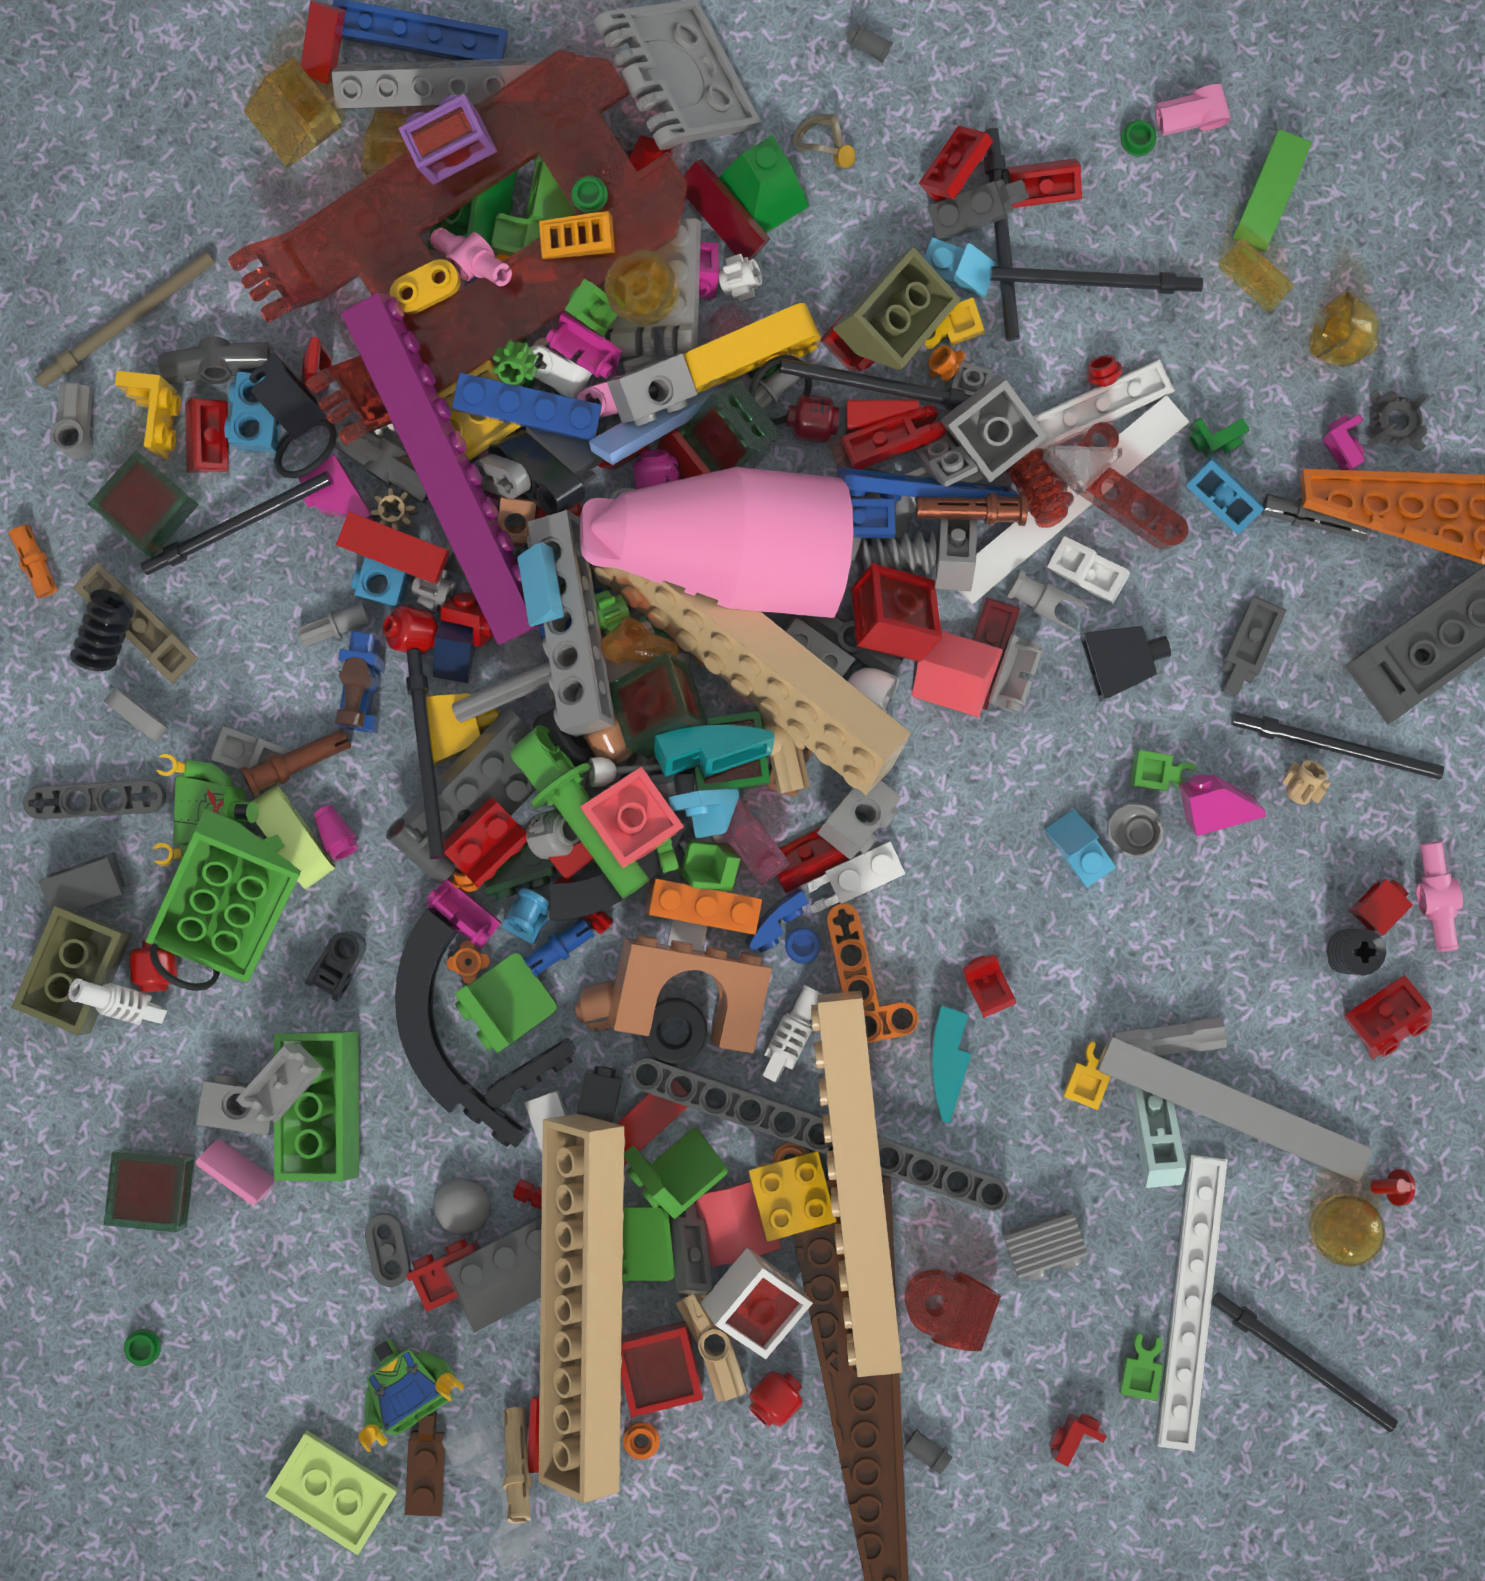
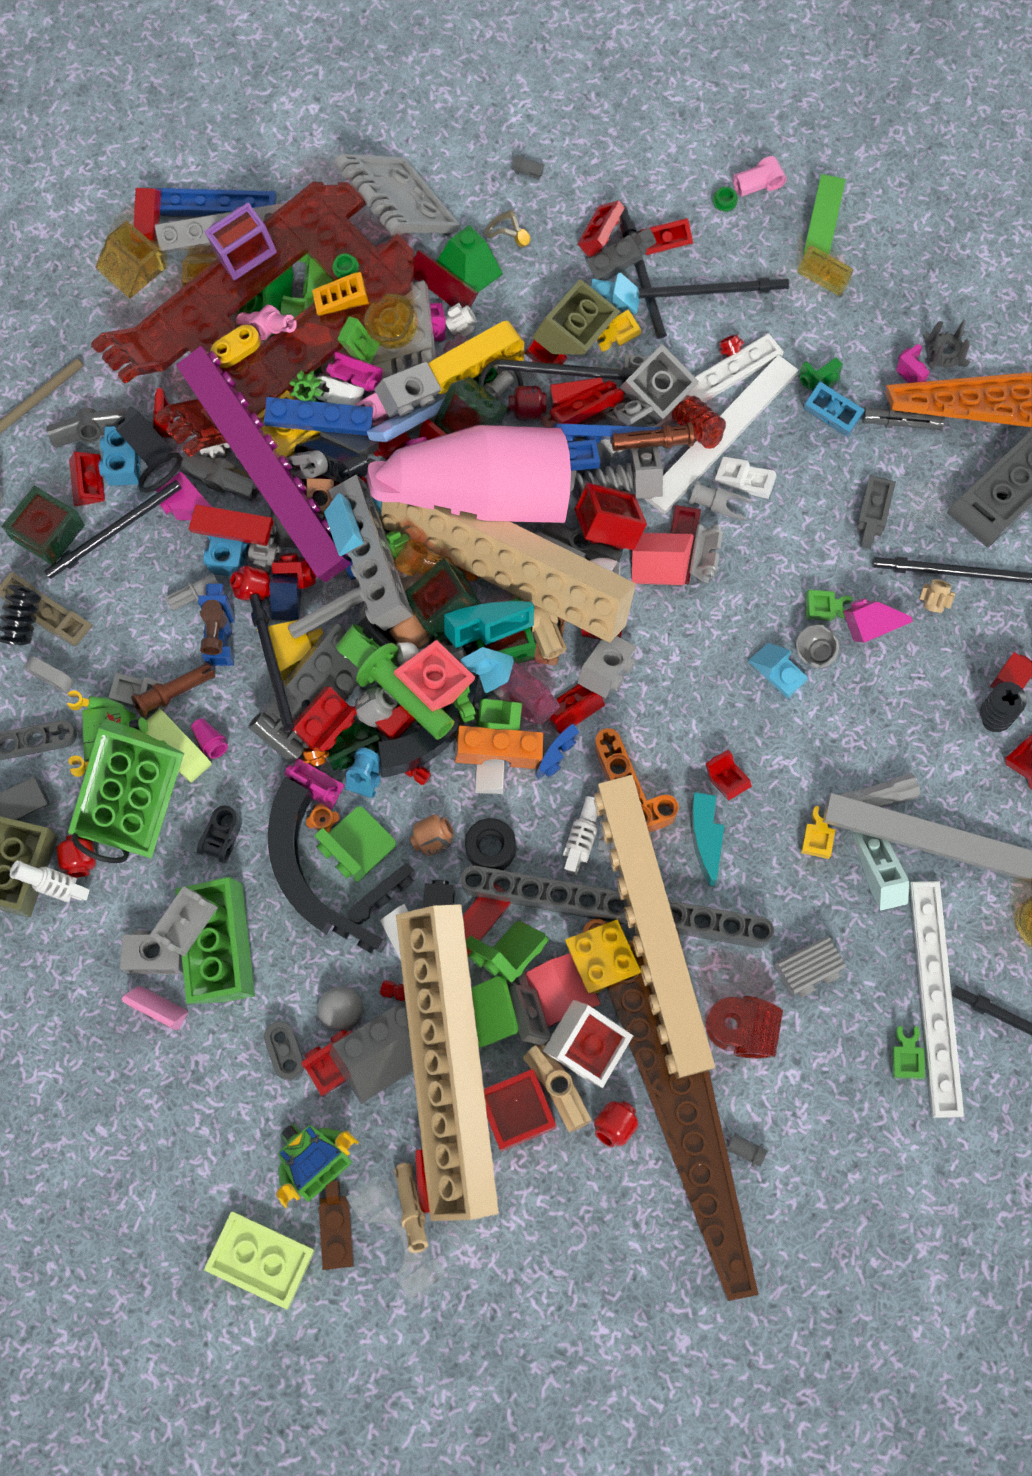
camera: 10 degrees left, 15 degrees down
(142, 1347) = (91, 1162): green plate -> none
(149, 1189) = (86, 1028): piece -> none
(162, 405) = (44, 451): yellow bracket -> none
(395, 502) = (230, 502): tan gear -> none
(559, 947) = (392, 796): blue pin -> none
(635, 1450) = (511, 1167): orange plate -> none
(649, 965) = (534, 797): nougat arch -> none
(803, 945) = (580, 770): blue tile -> none
(857, 876) = (613, 712): white hinge -> none
(945, 362) = (616, 355): orange plate -> none
(1067, 1439) = (858, 1121): red bracket -> none
(1079, 464) = (725, 394): clear slope -> none
(1122, 658) = (782, 531): black torso -> none
(1131, 493) = (764, 418): clear red beam -> none
(1347, 332) = (900, 292): clear yellow cylinder -> none

